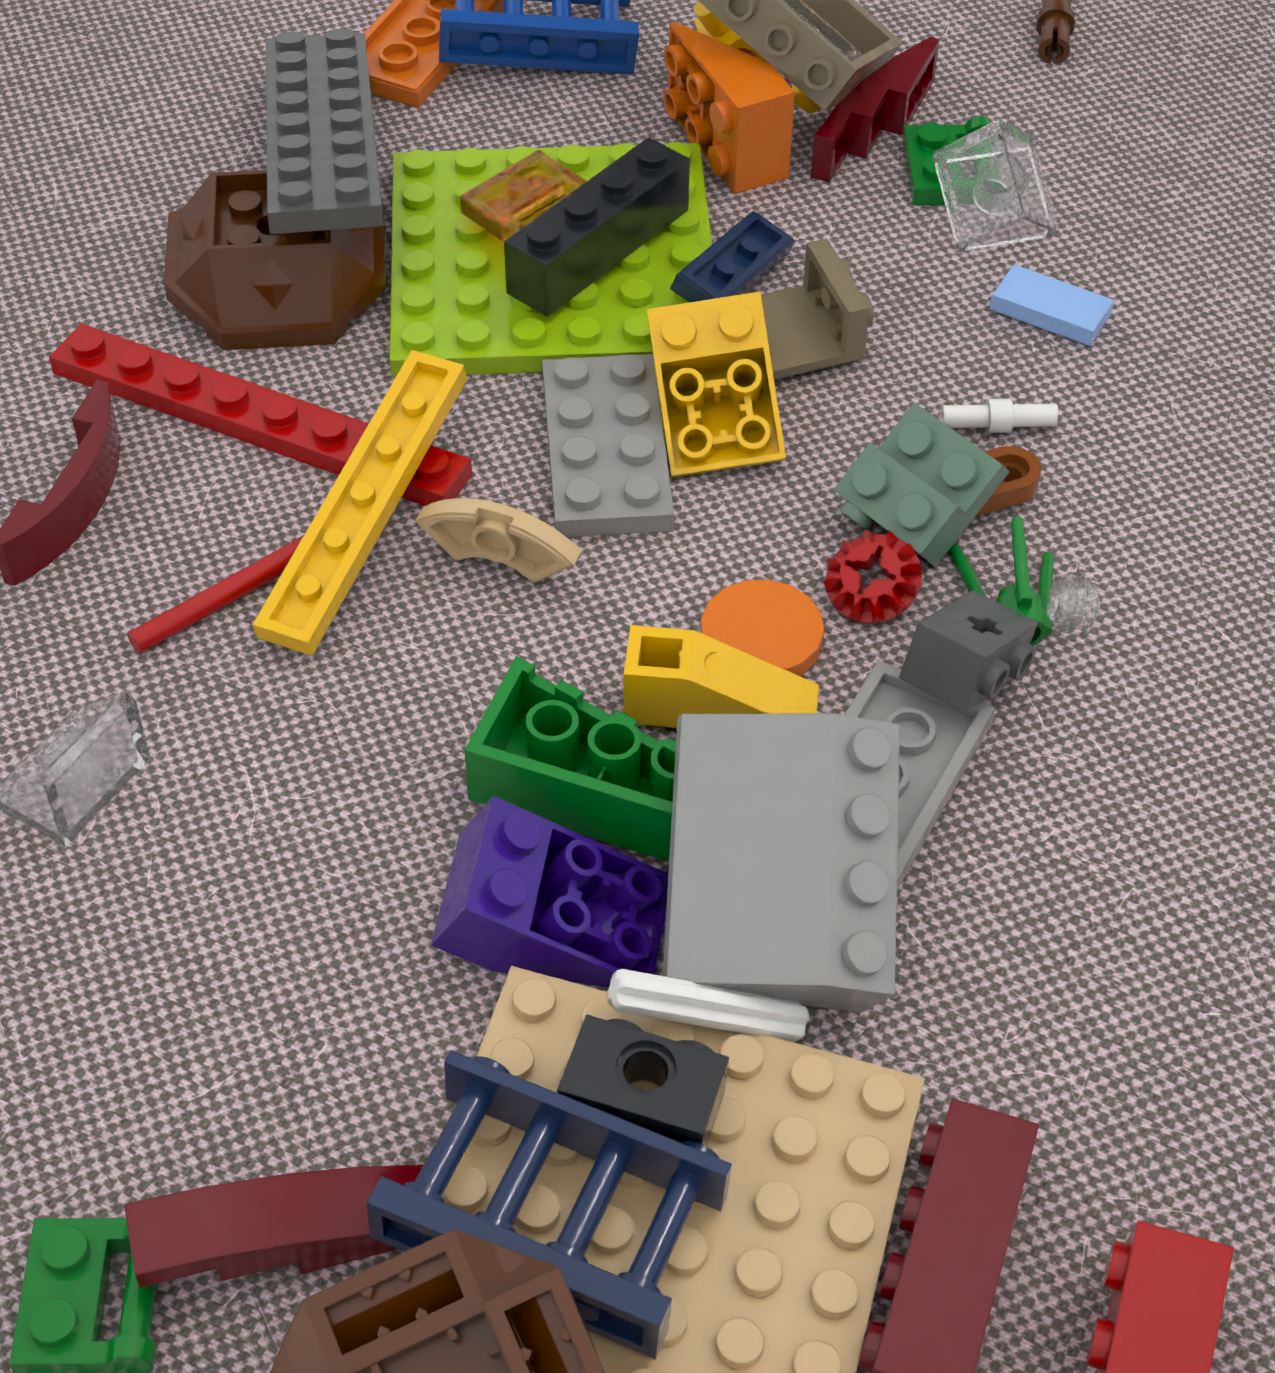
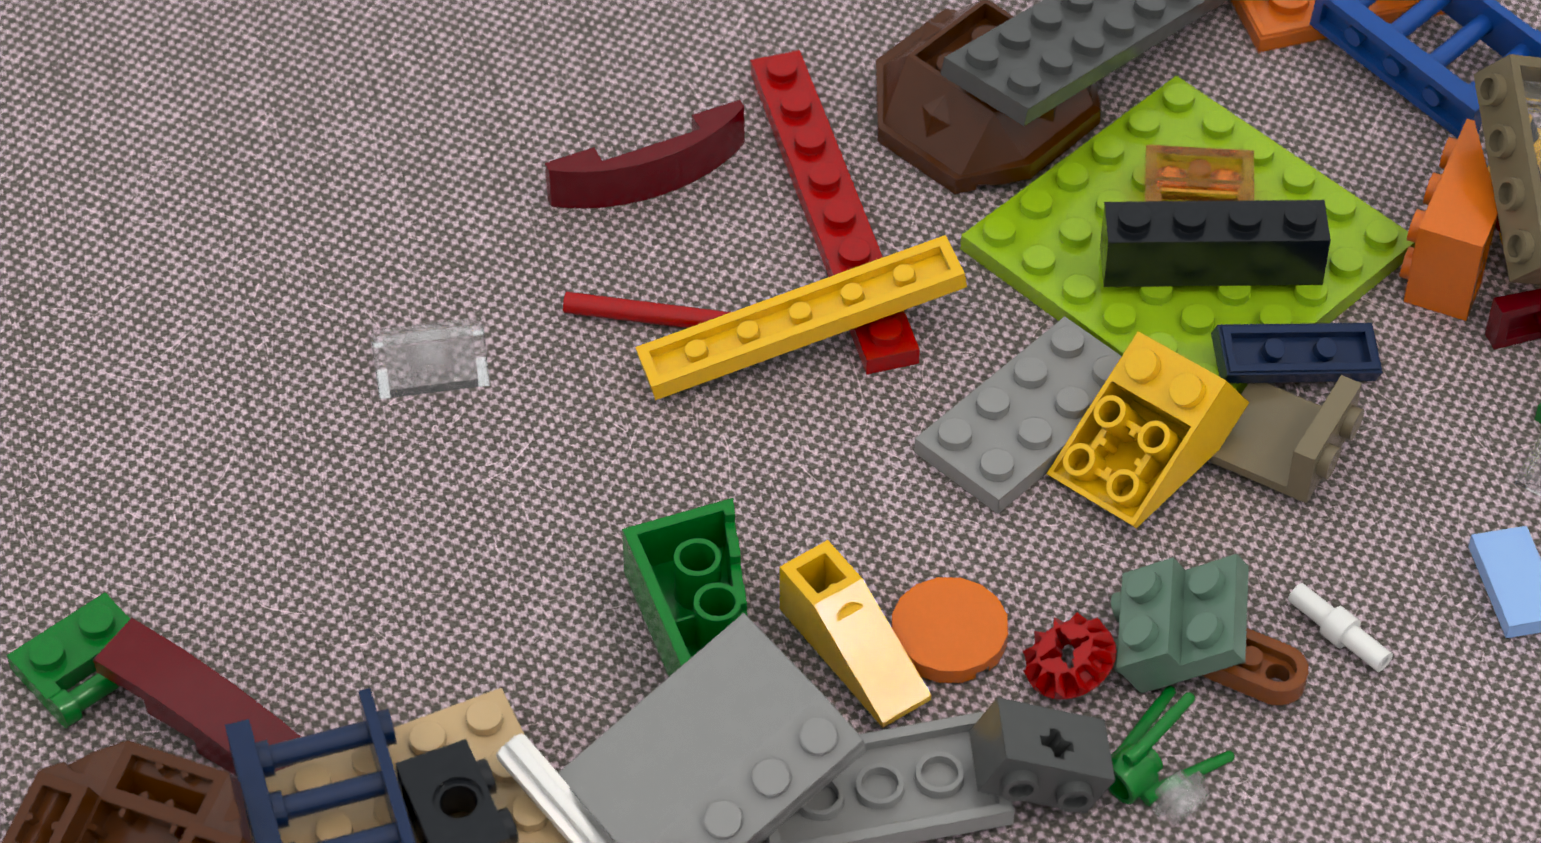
camera: 50 degrees right, 0 degrees up
(499, 534) = (854, 415): tan tile -> none
(548, 900) = (570, 664): dark purple slope -> none

